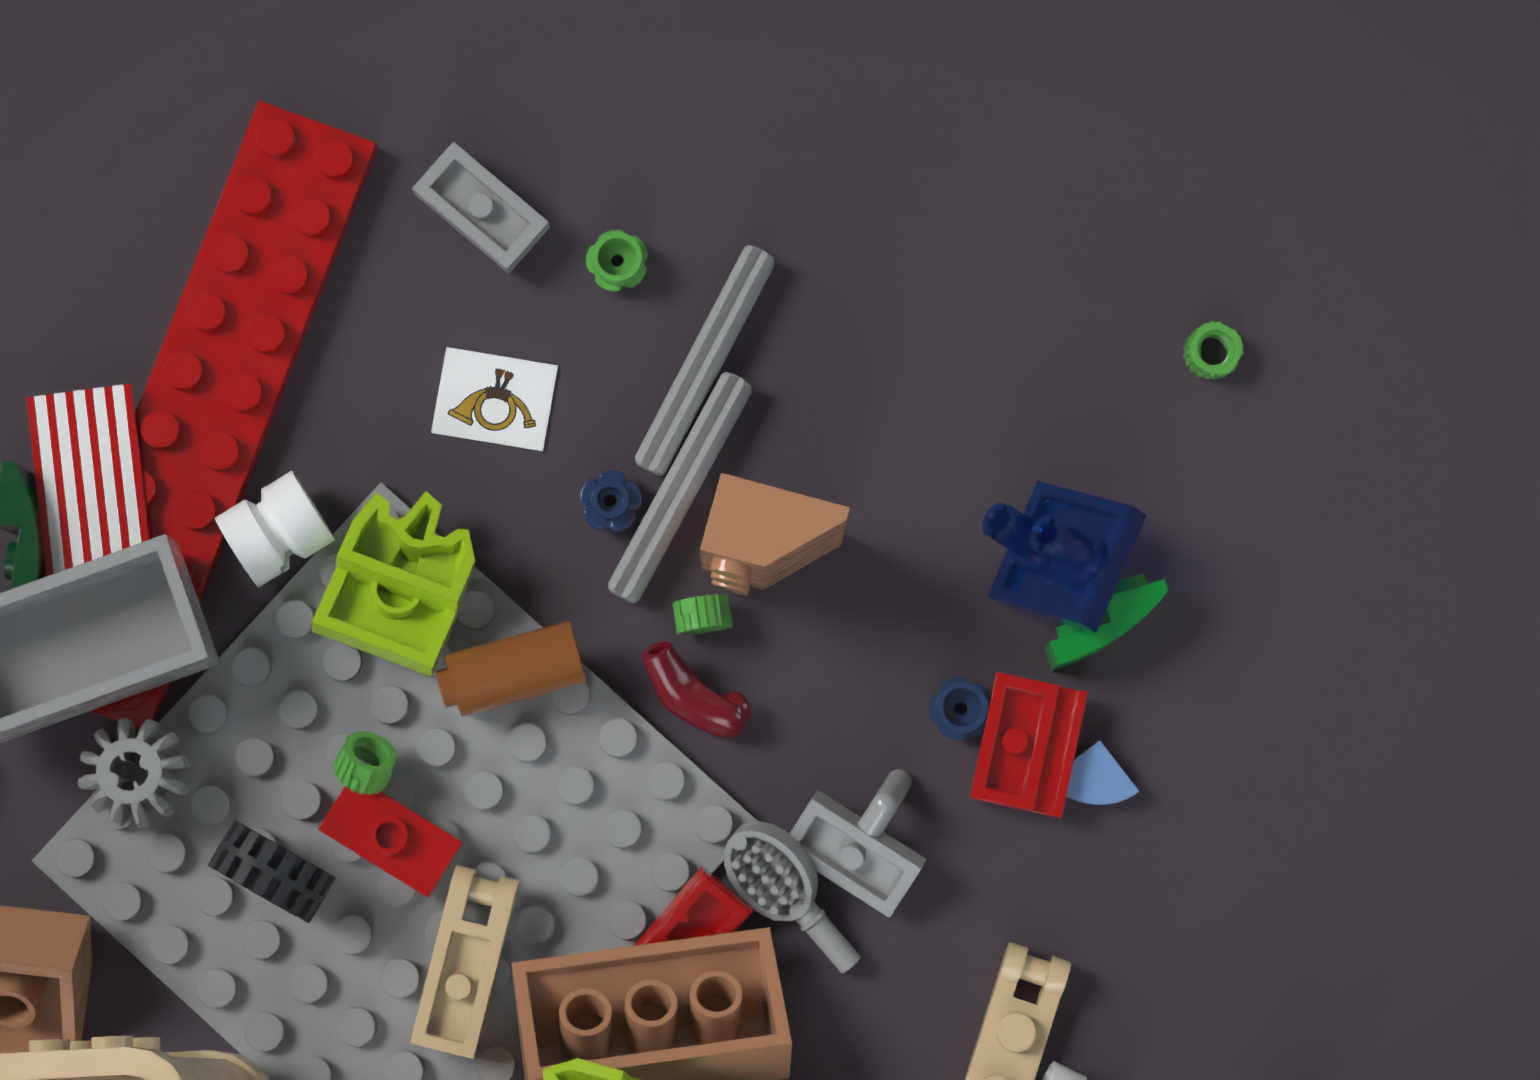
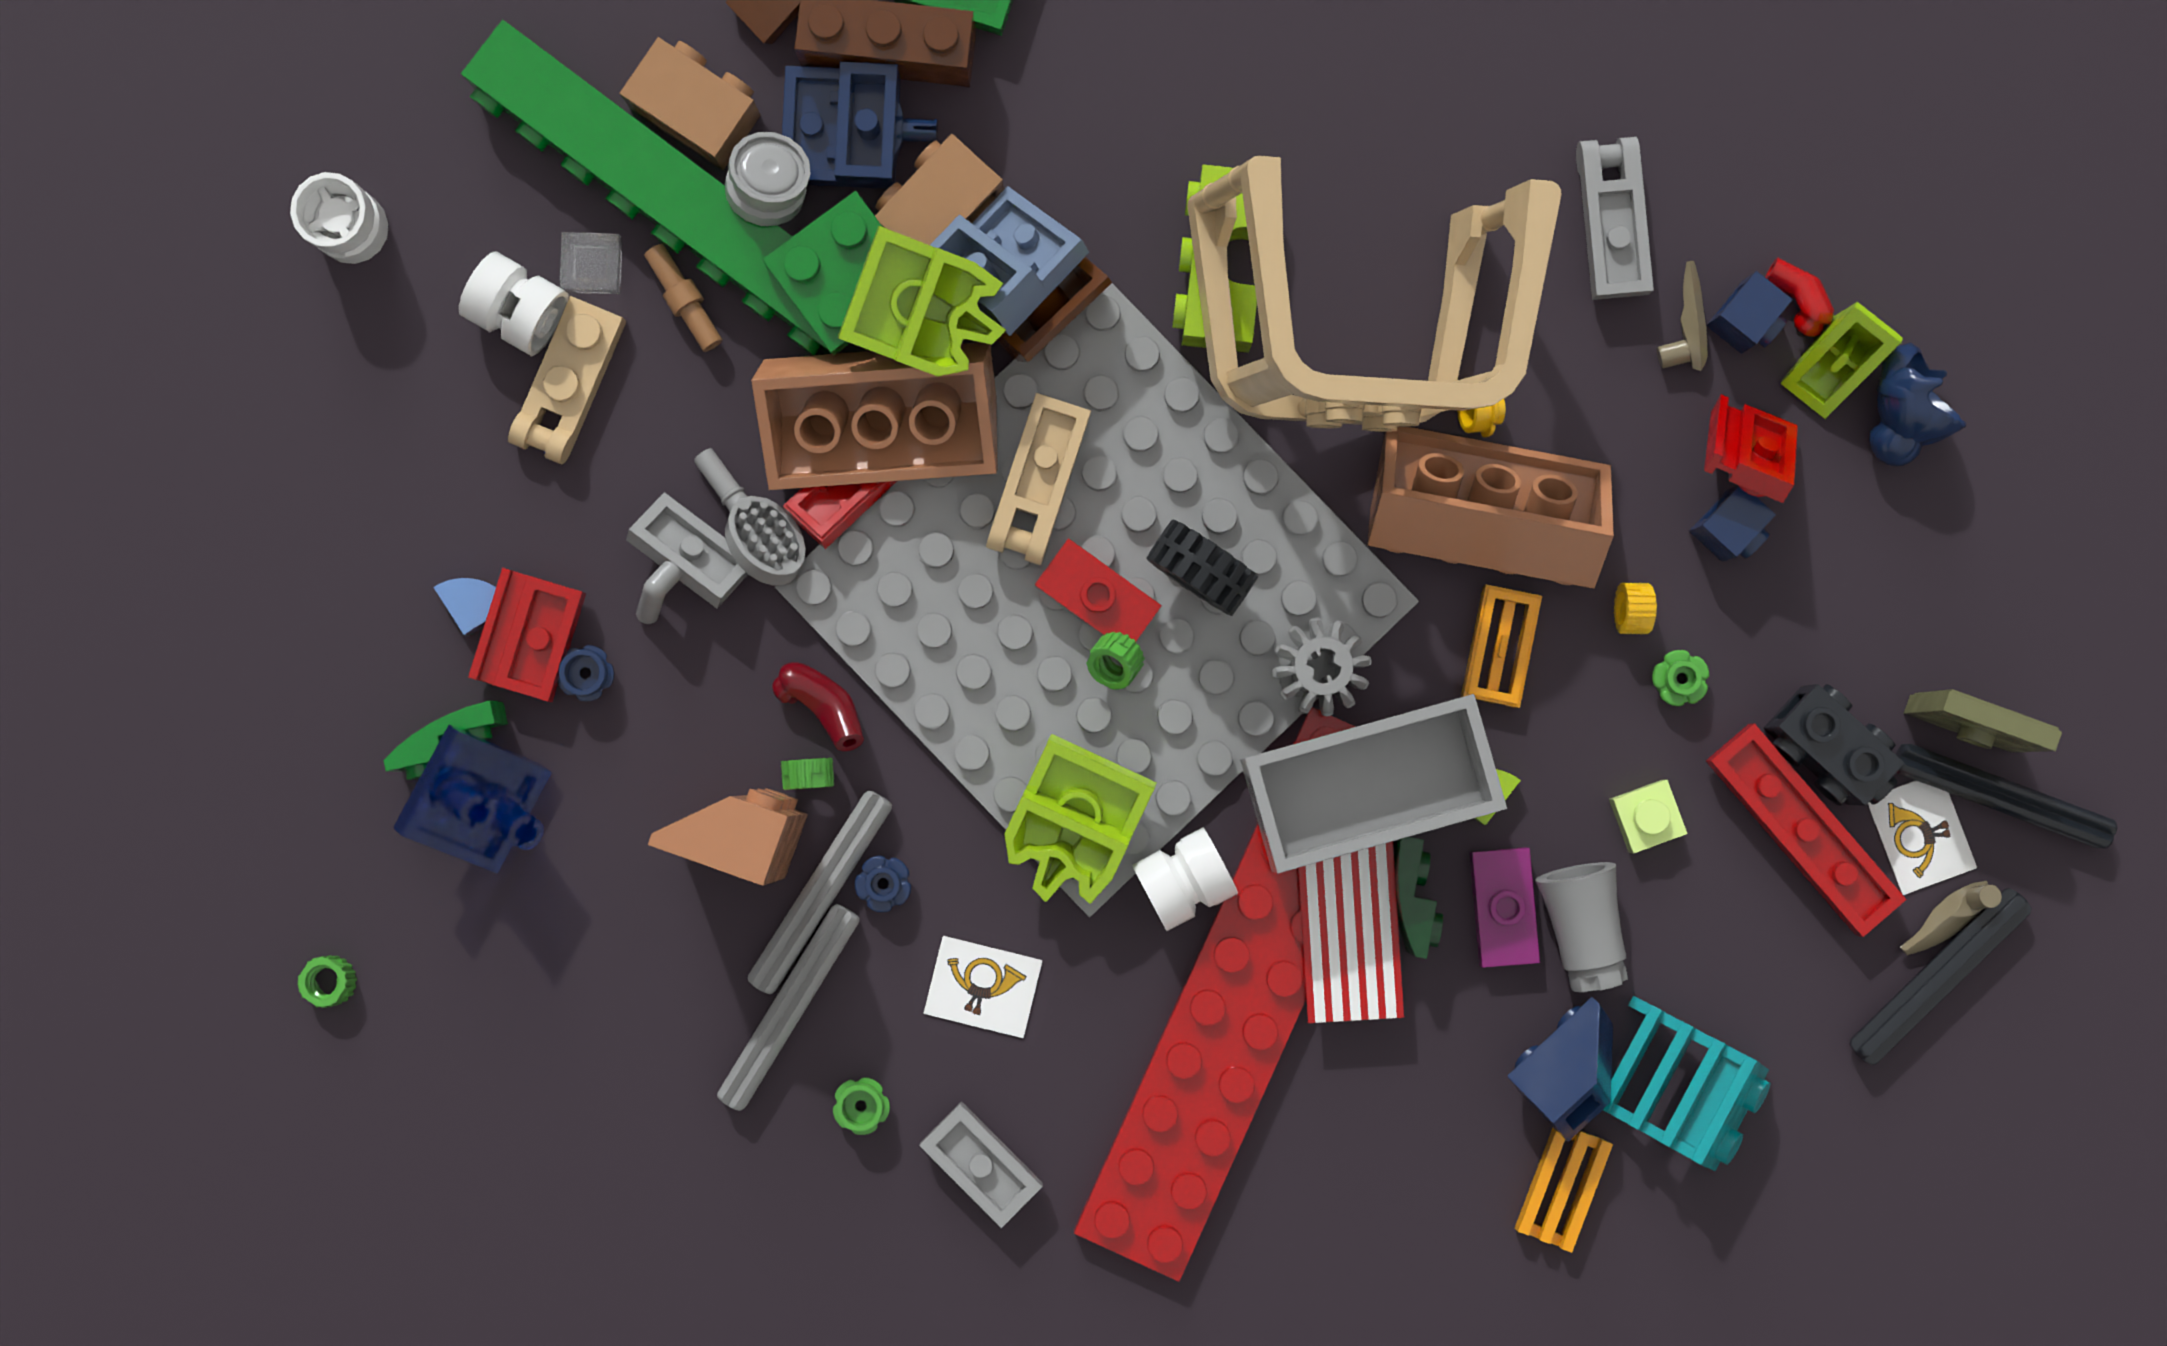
camera: 170 degrees left, 5 degrees up
(511, 669) = (978, 734): dark orange brick -> none

